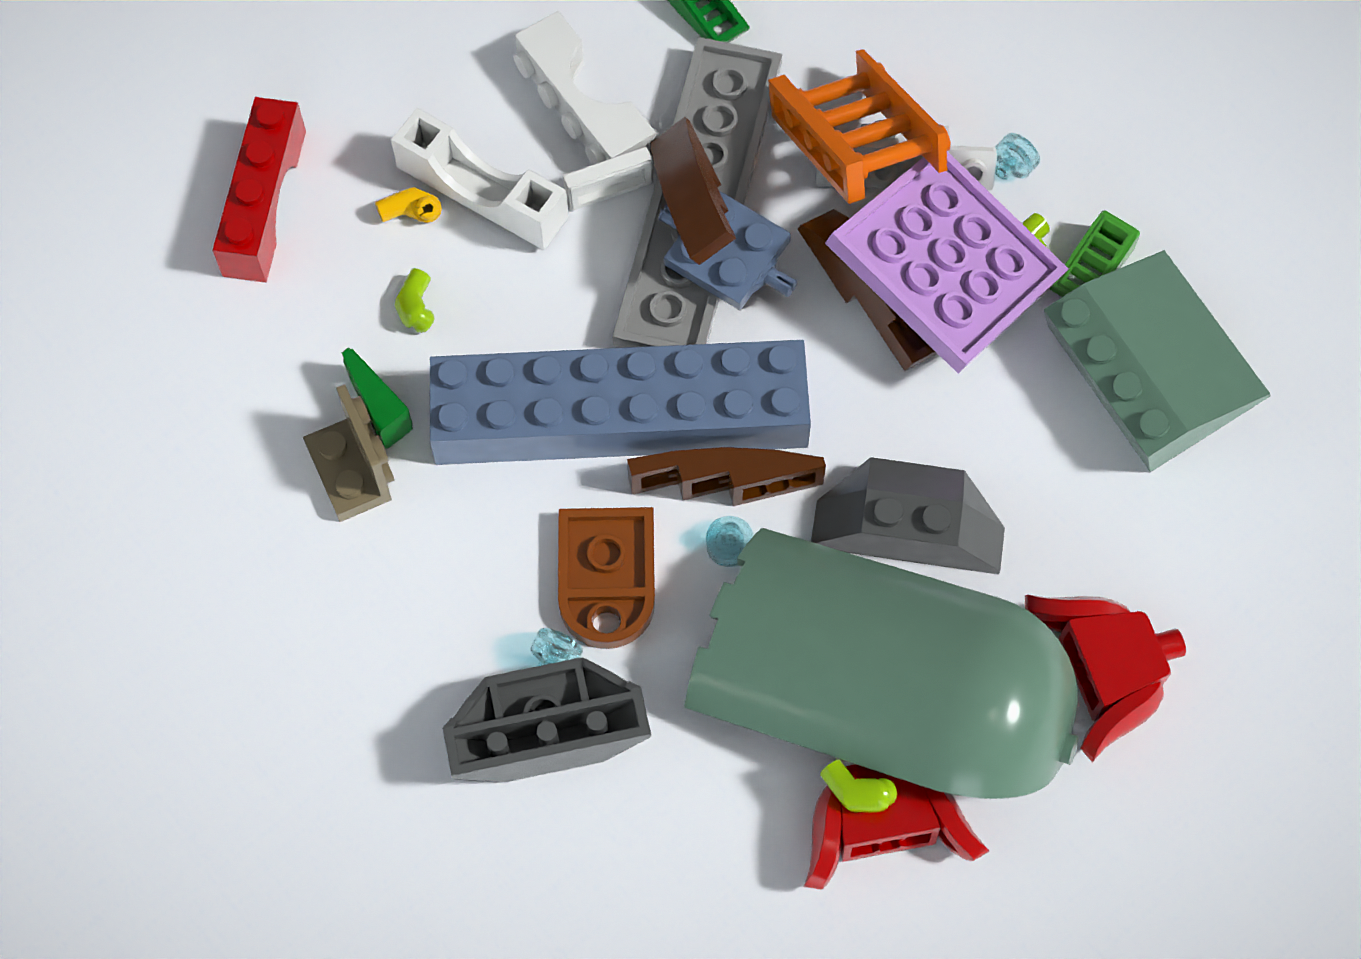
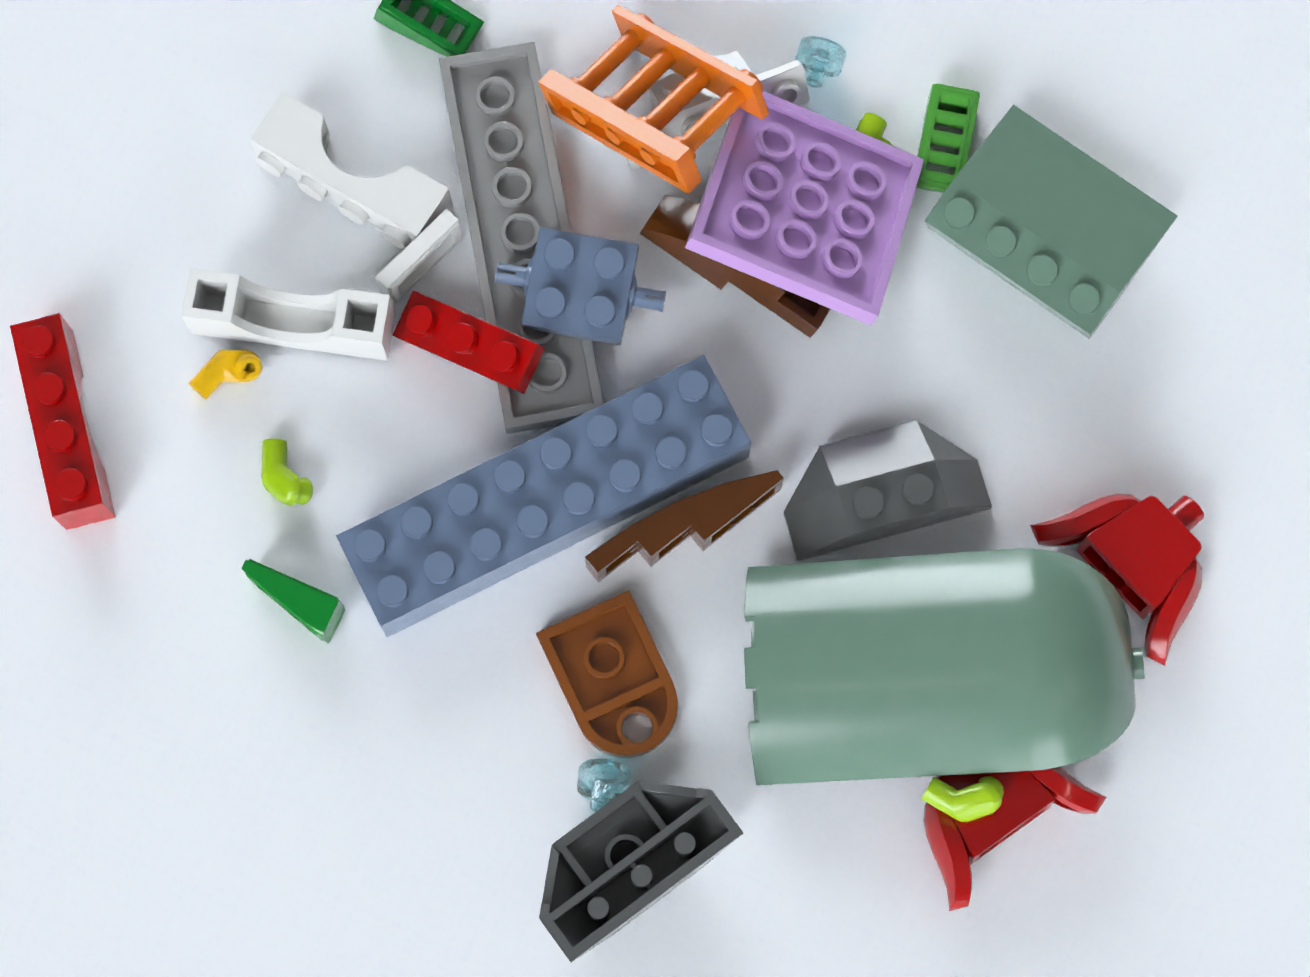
camera: 25 degrees left, 10 degrees up
(351, 460) = (299, 678): dark tan bracket -> none
(615, 257) = (468, 341): none -> red plate
(691, 191) = (520, 243): reddish brown slope -> none
(727, 539) = (718, 602): clear light blue tile -> none

